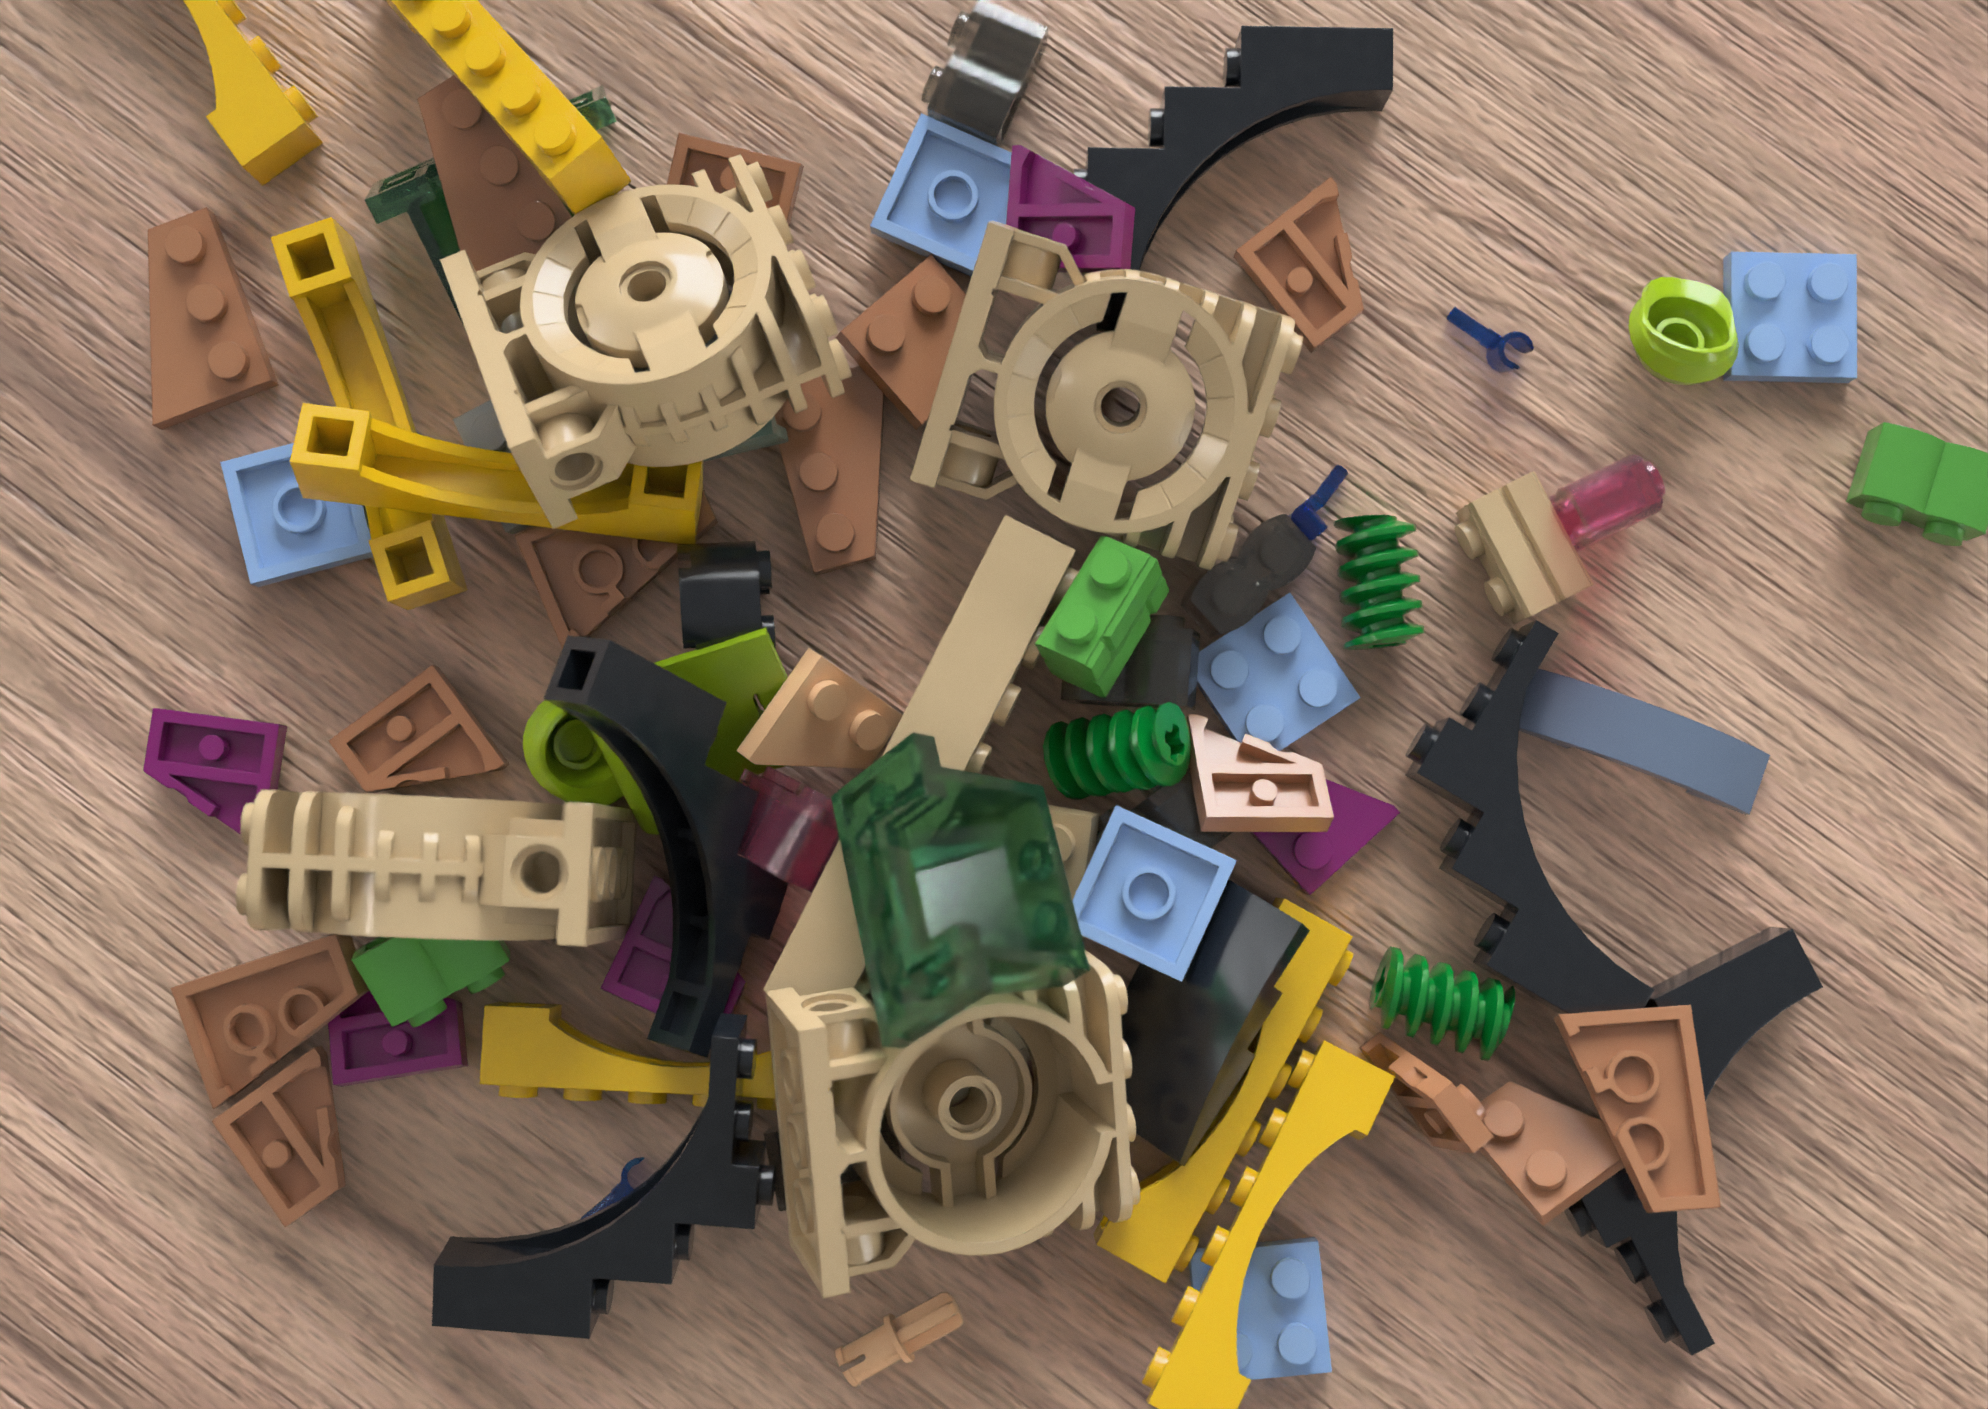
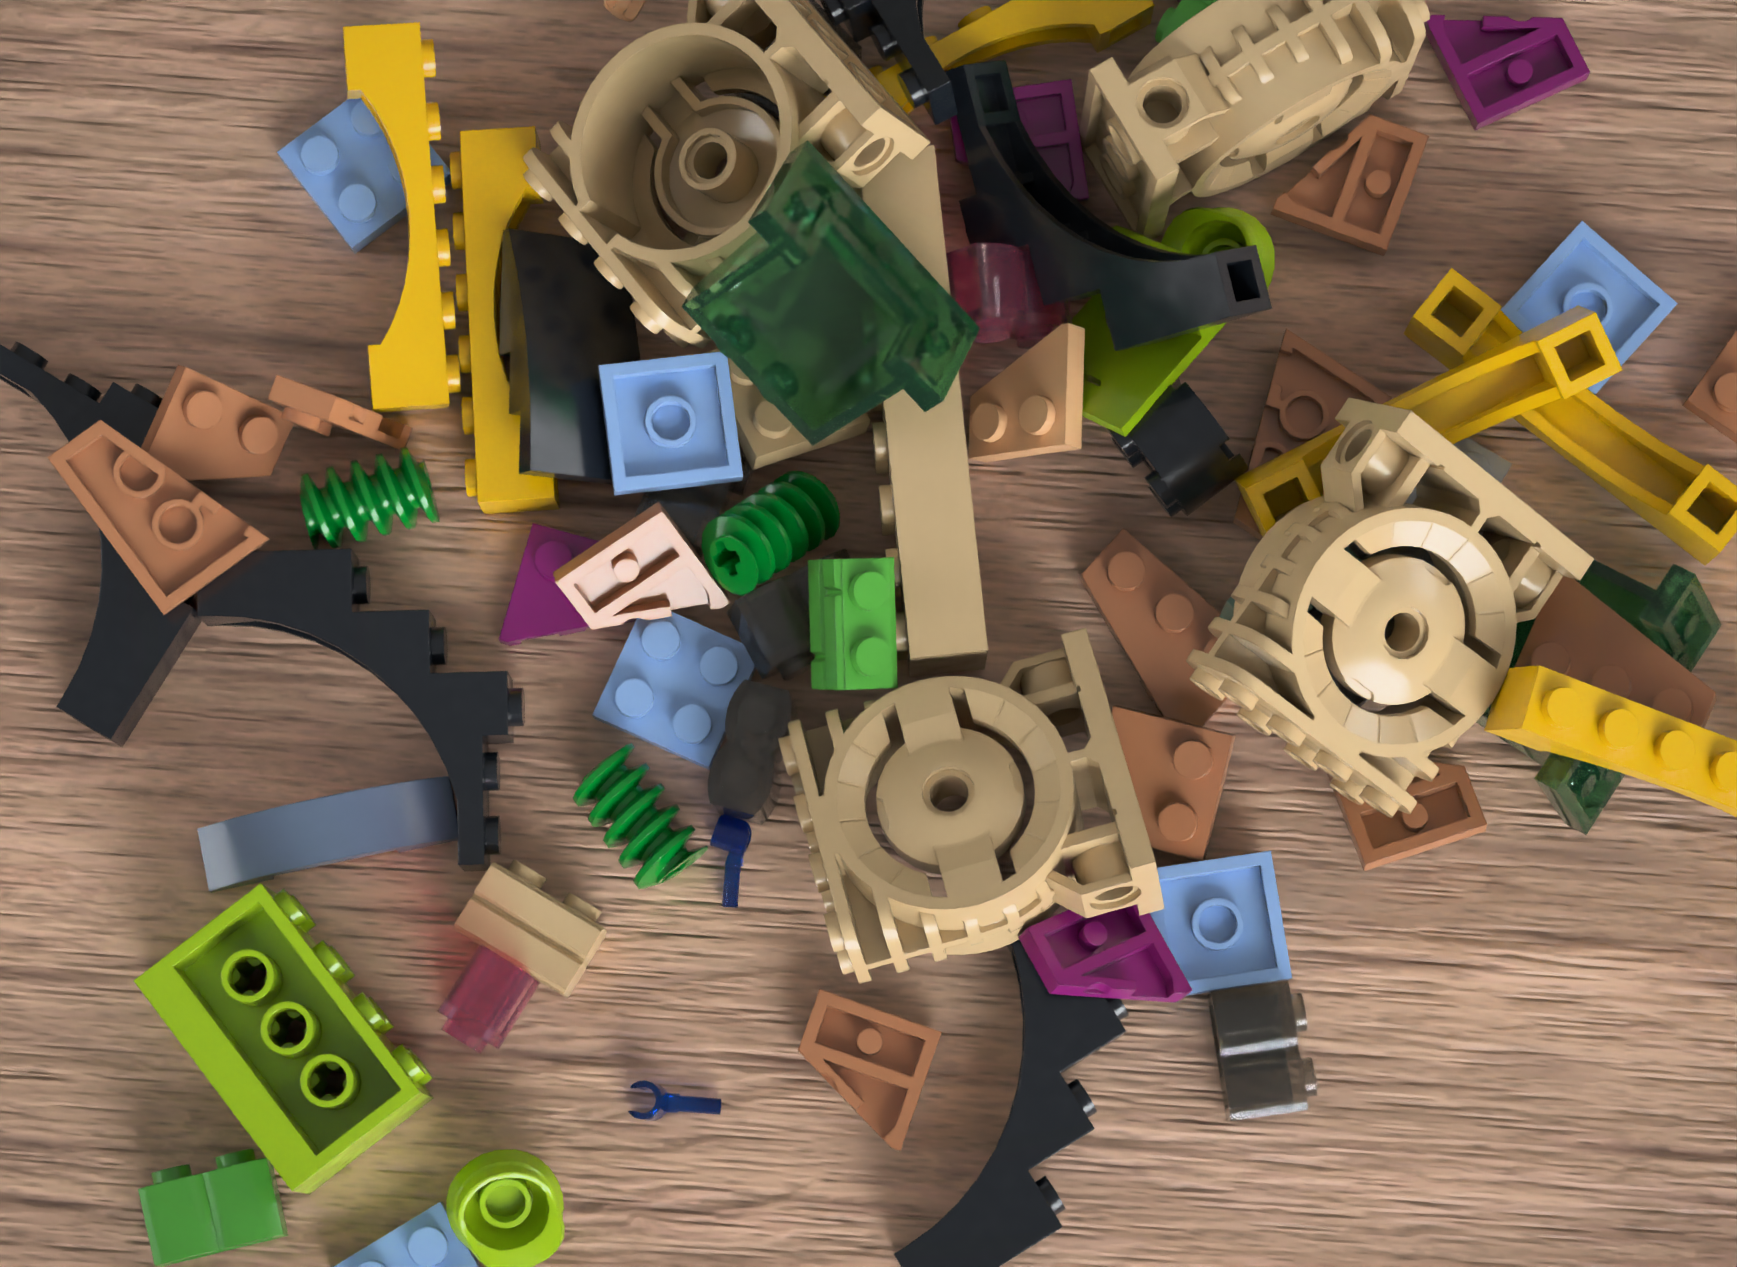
camera: 150 degrees right, 5 degrees down
(1793, 575) = (243, 1046): none -> lime brick

